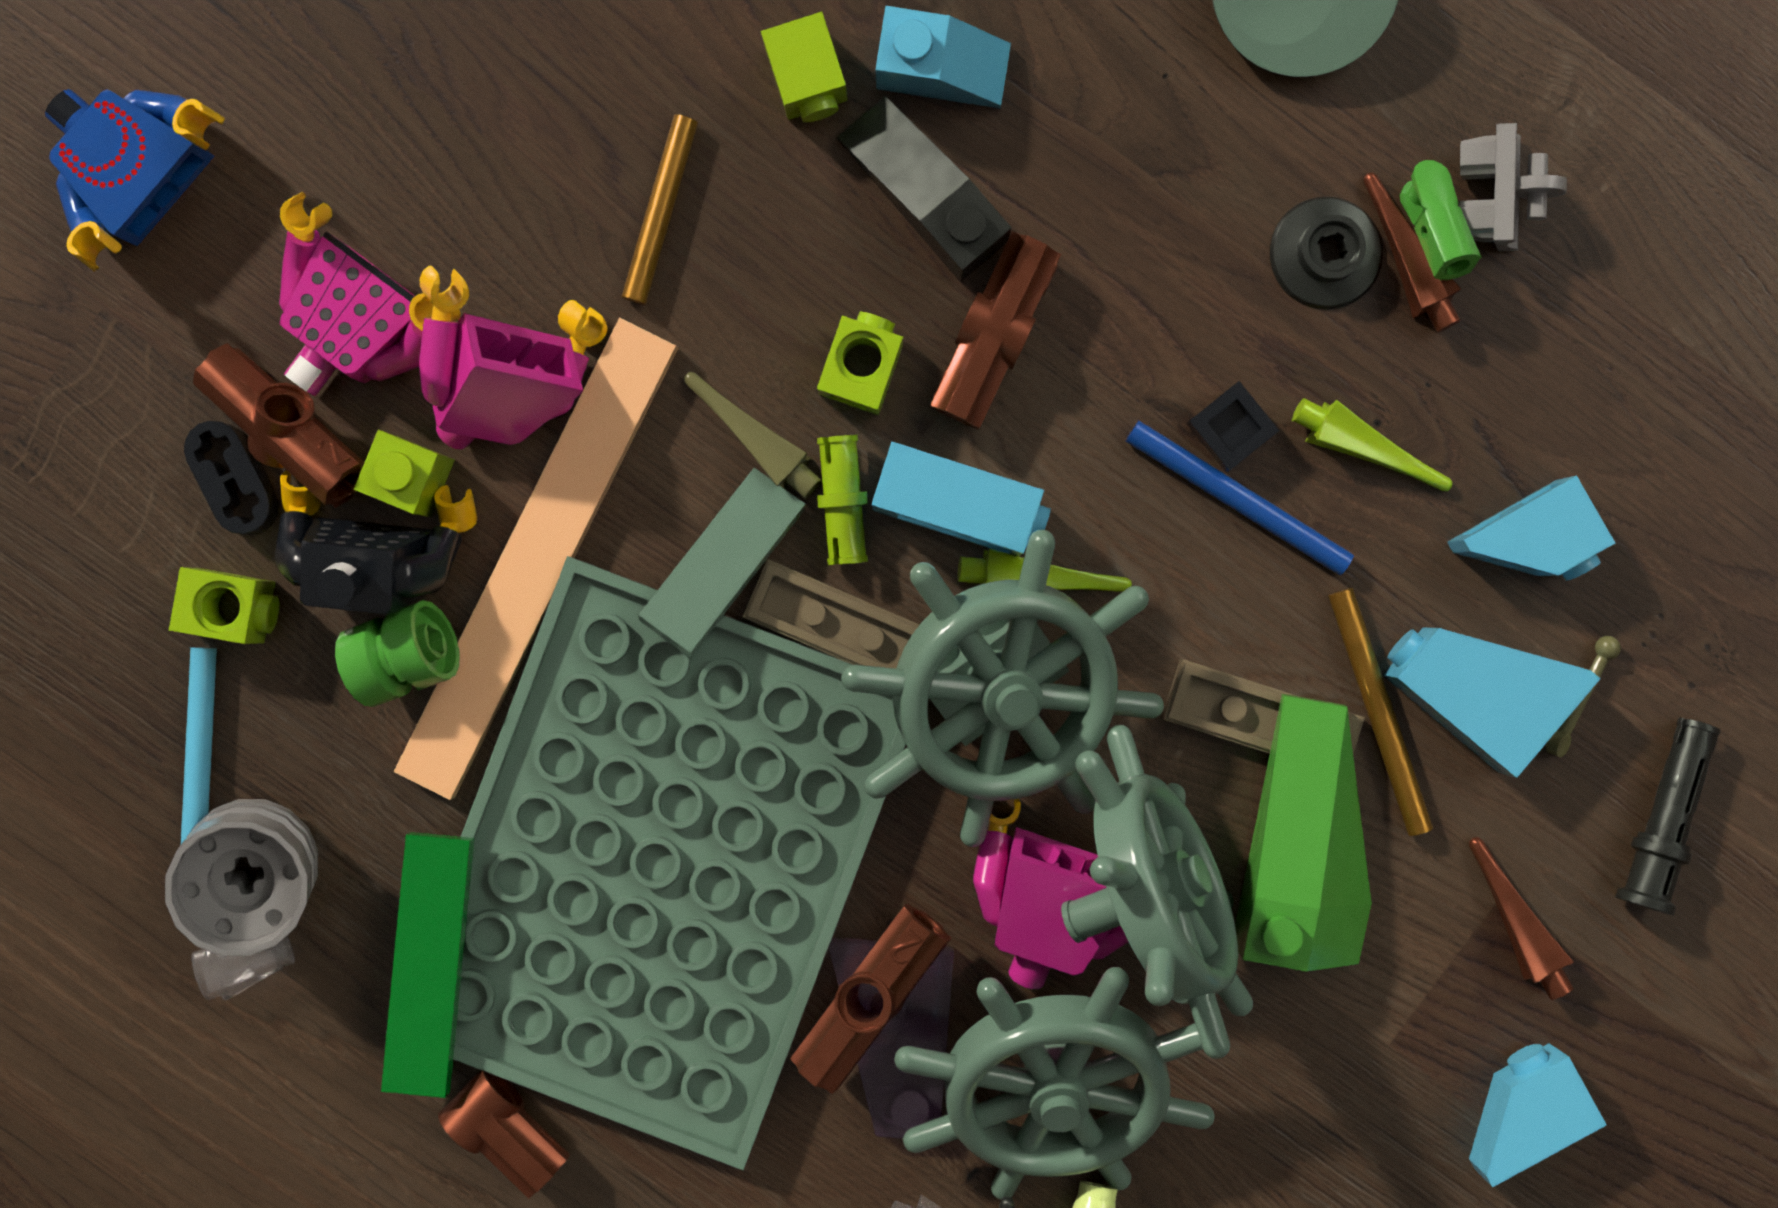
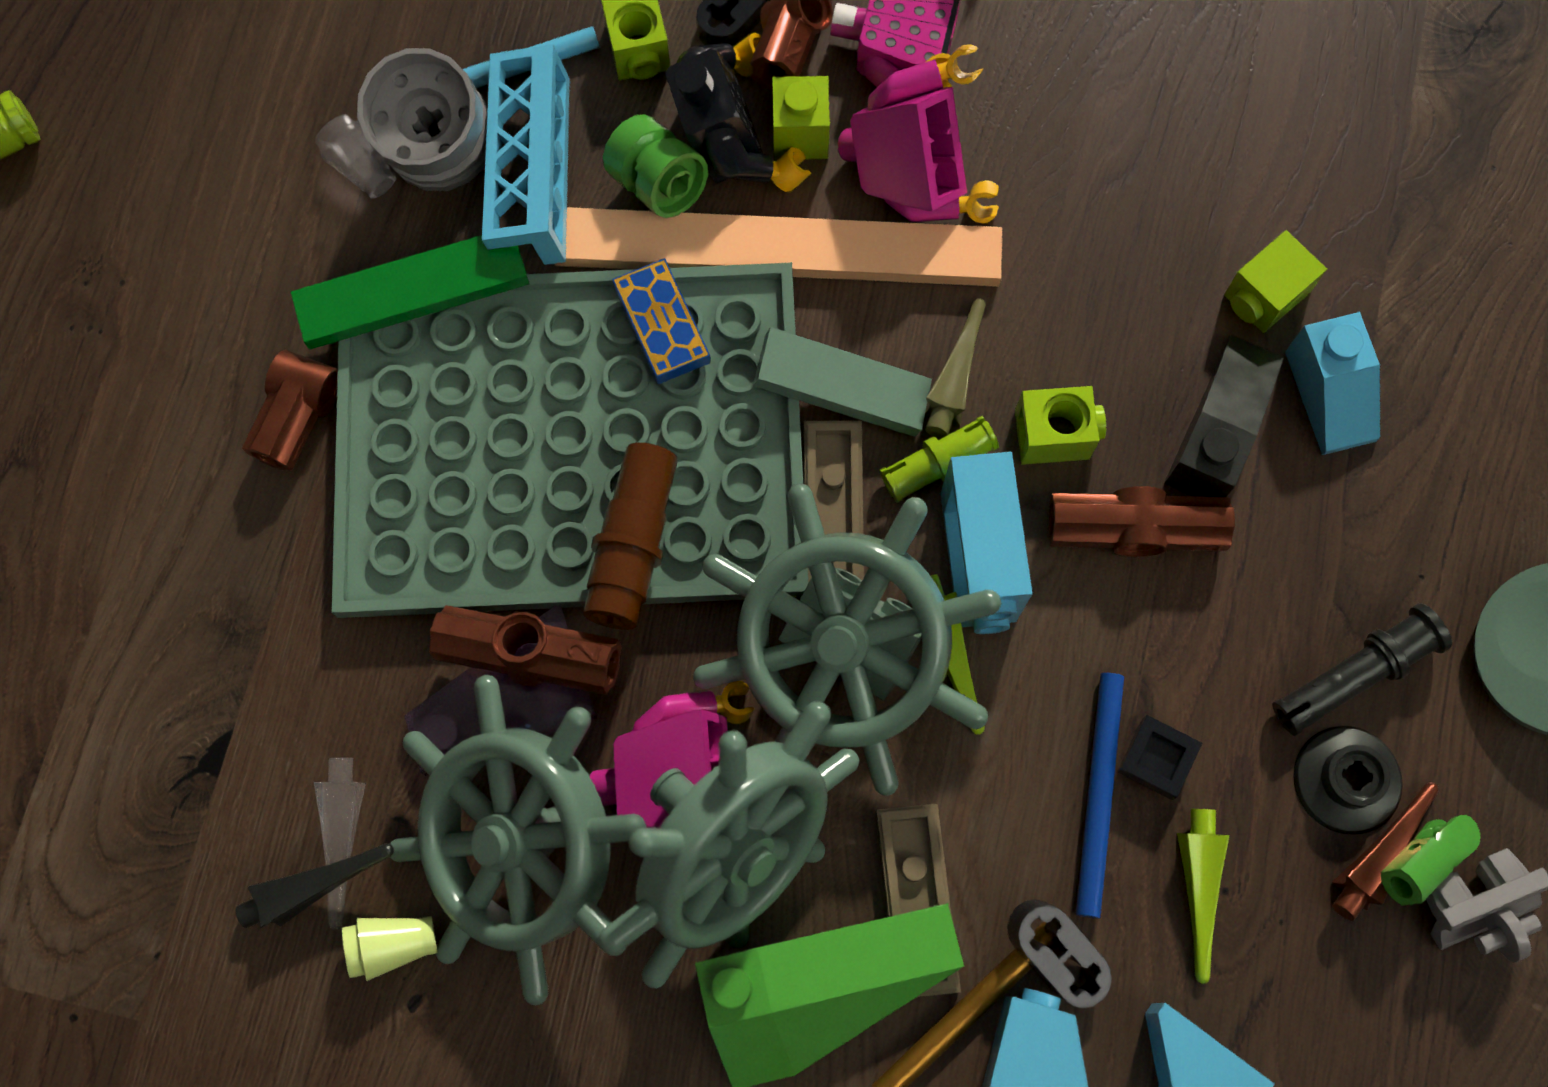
camera: 70 degrees right, 15 degrees down
(332, 760) = (547, 153): none -> medium azure fence
(577, 721) = (661, 321): none -> blue tile
(659, 209) = (1102, 225): pearl gold bar -> none
(801, 849) = (630, 537): none -> reddish brown piece
(1231, 160) = (1384, 656): none -> pearl dark grey pin
(1368, 600) = (1068, 944): none -> beam

